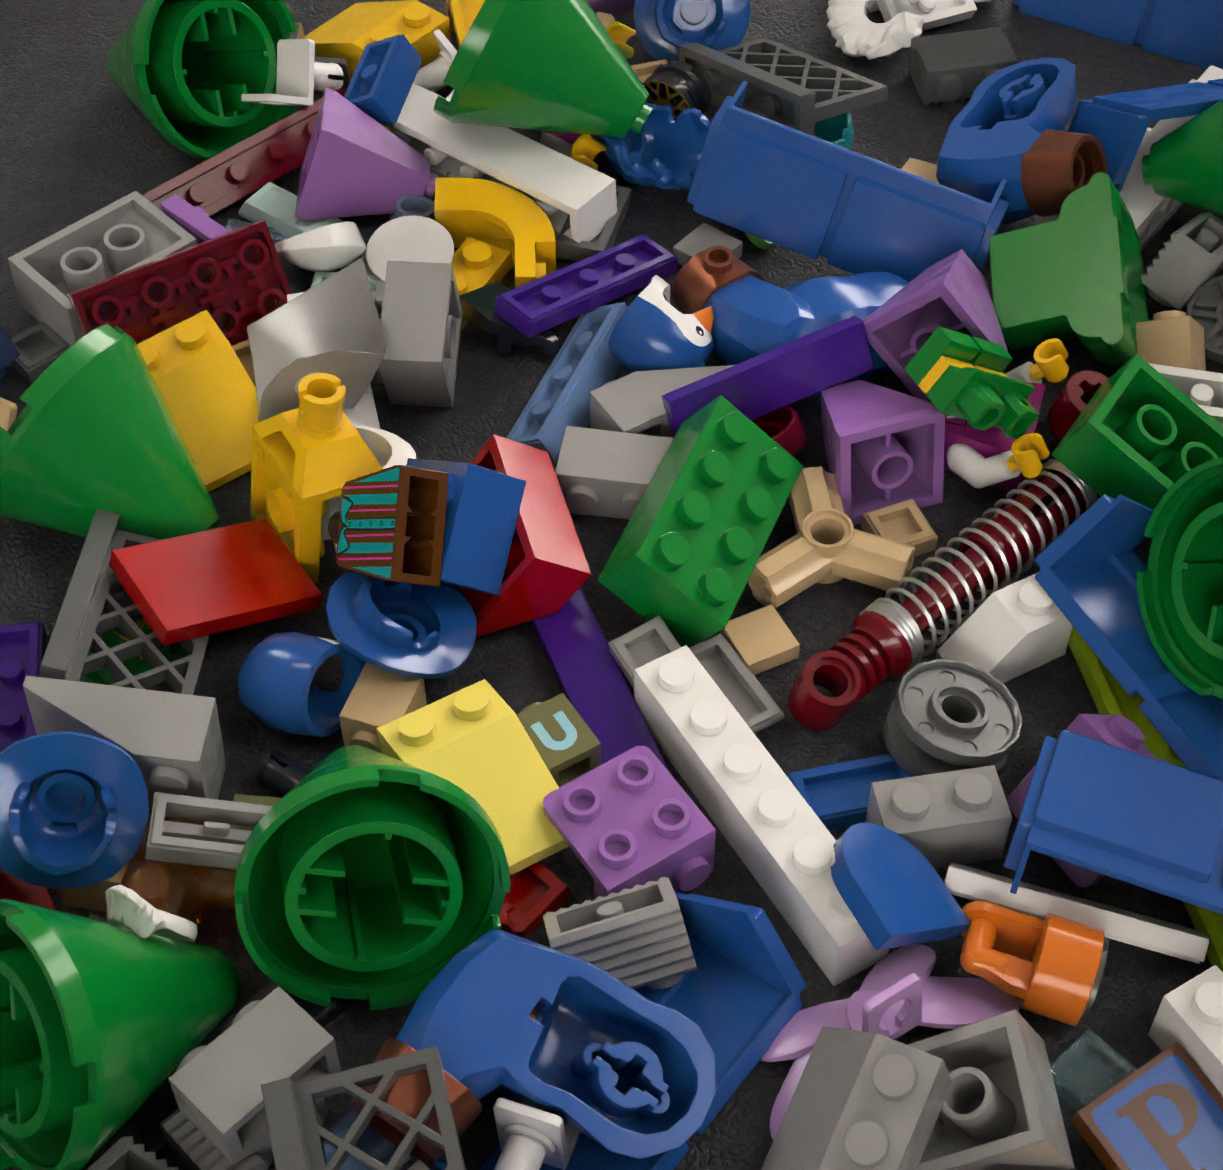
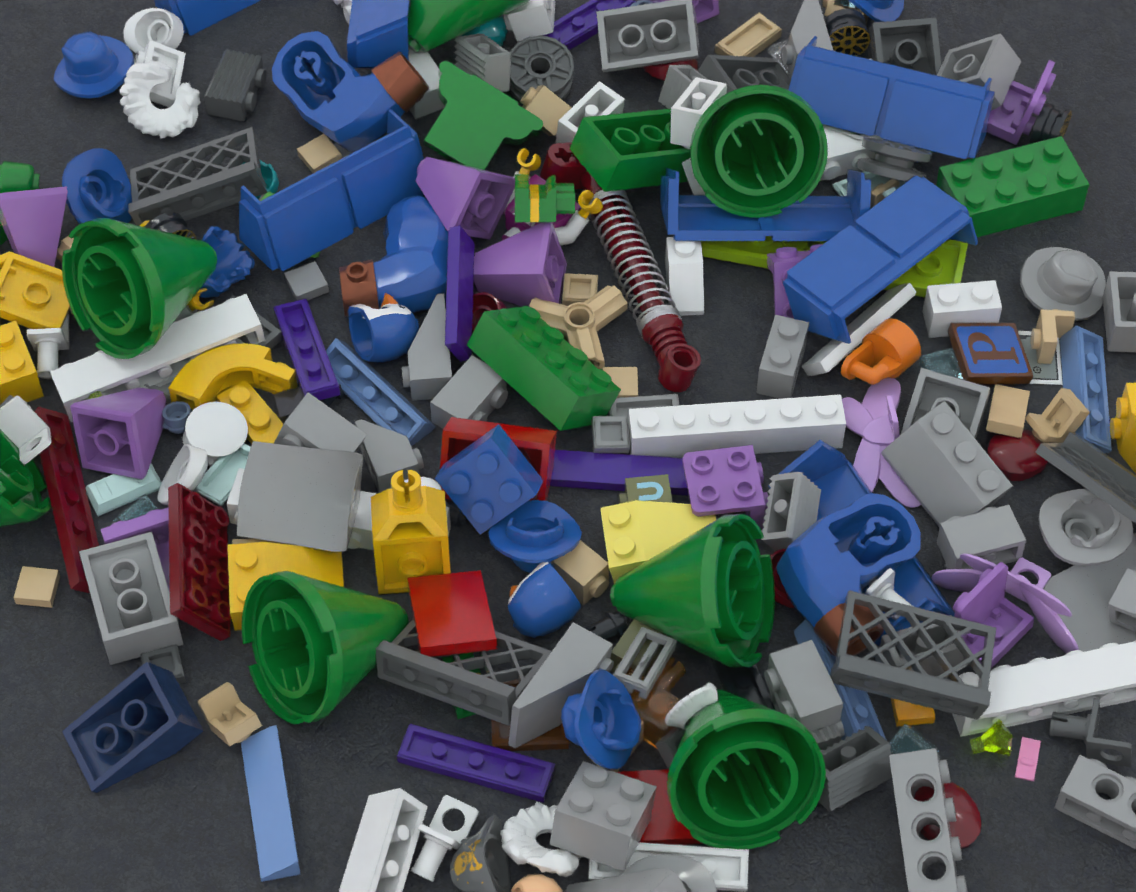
camera: 65 degrees left, 5 degrees up
(101, 193) = (37, 586): none -> tan tile
(384, 78) = (59, 379): blue slope -> none
(393, 525) = (492, 501): reddish brown torso -> none
(458, 421) = (387, 454): none -> light grey slope
(842, 790) = (739, 379): blue tile -> none
(893, 889) = (829, 386): blue tile -> none
(951, 719) = (730, 324): dark grey wheel -> none

